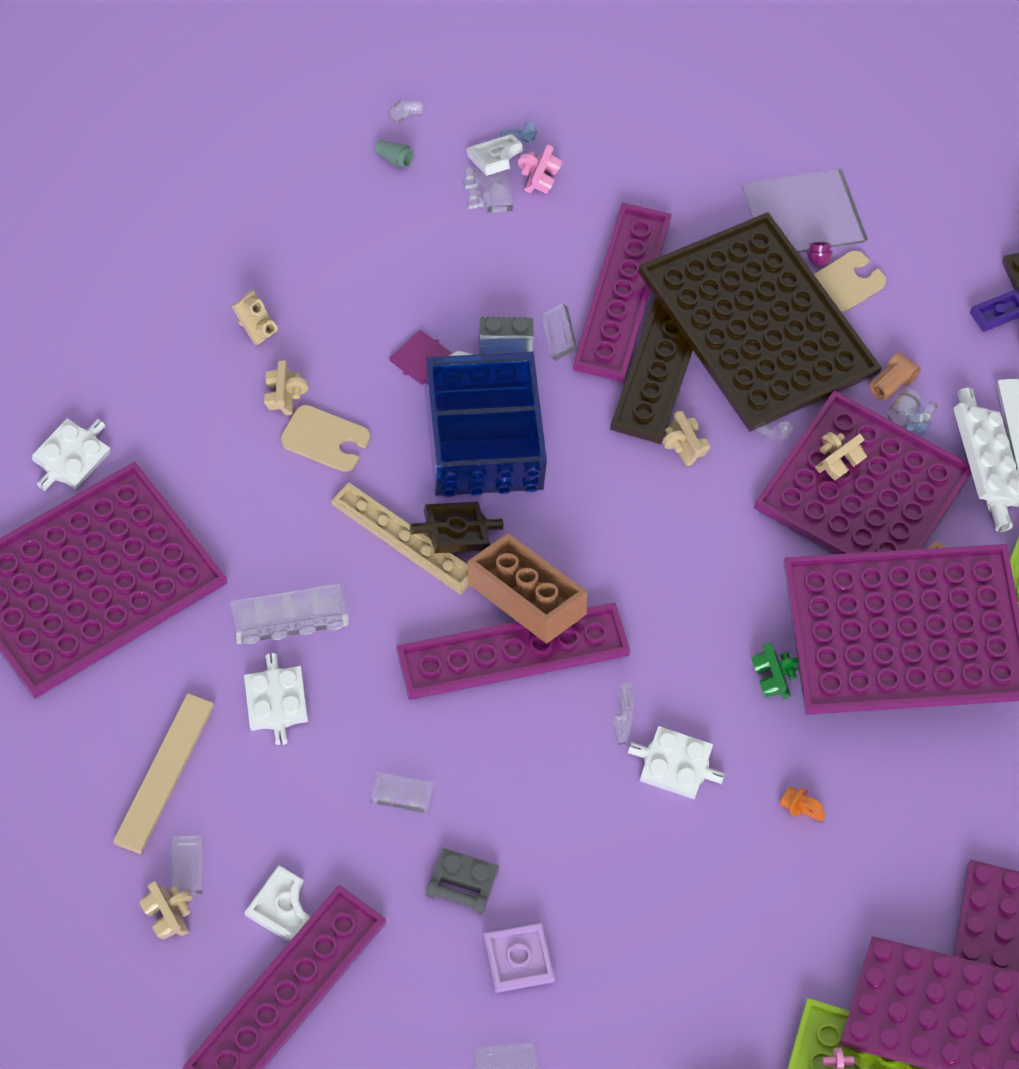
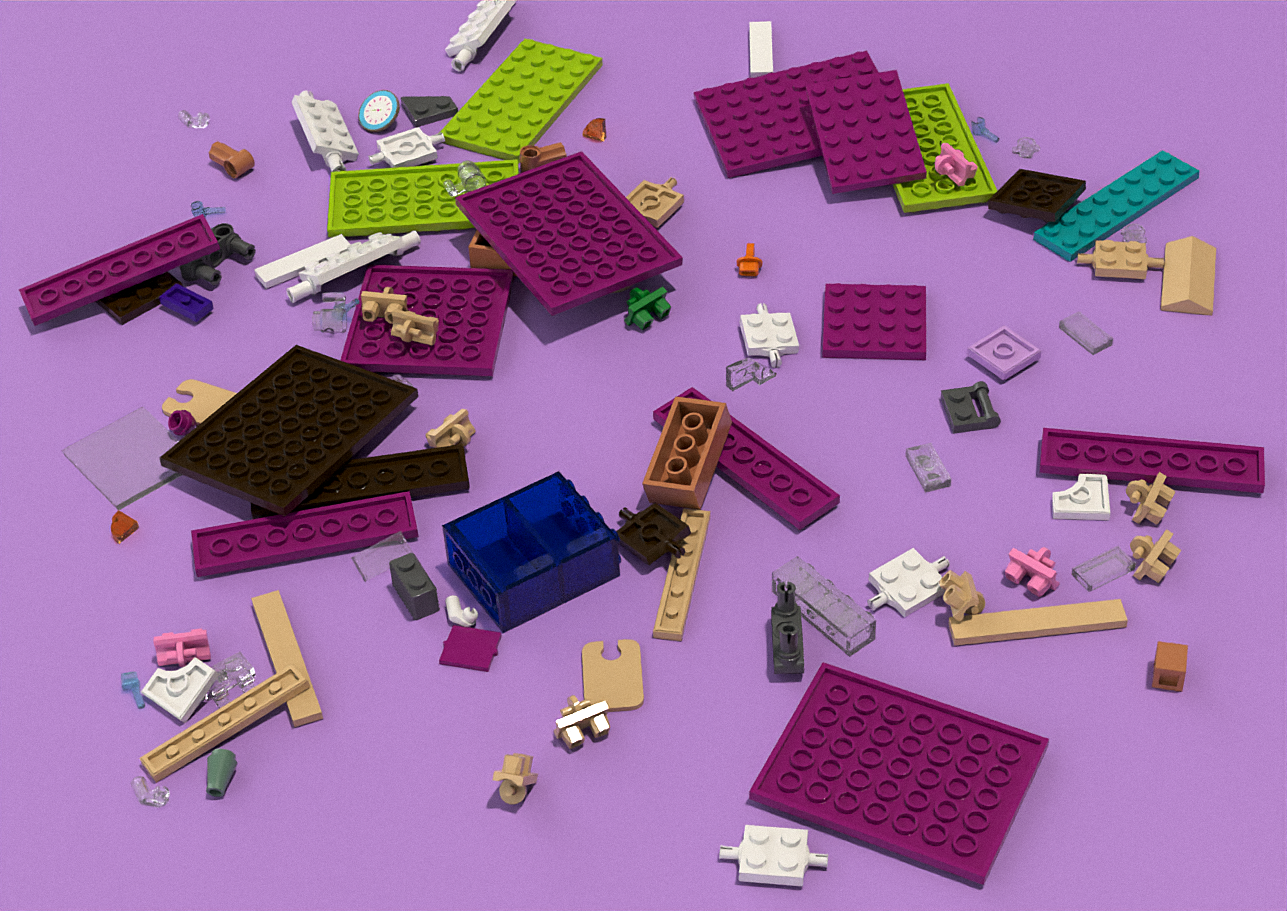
camera: 110 degrees left, 15 degrees down
(40, 836) = (1170, 666): none -> nougat brick
(218, 799) = (1035, 565): none -> bright pink hips
(220, 721) = (961, 594): none -> tan hips
(228, 945) = (1147, 495): none -> tan hips
(252, 557) = (787, 632): none -> dark grey piece
(443, 173) = (224, 722): none -> tan tile
(490, 234) = (284, 652): none -> tan tile
(642, 871) = (874, 321): none -> magenta plate
(715, 180) = (122, 526): none -> clear orange tile
(889, 445) = (382, 304): none -> tan hips
(898, 372) = (292, 333): nougat piece -> none
(950, 758) = (656, 201): none -> tan plate

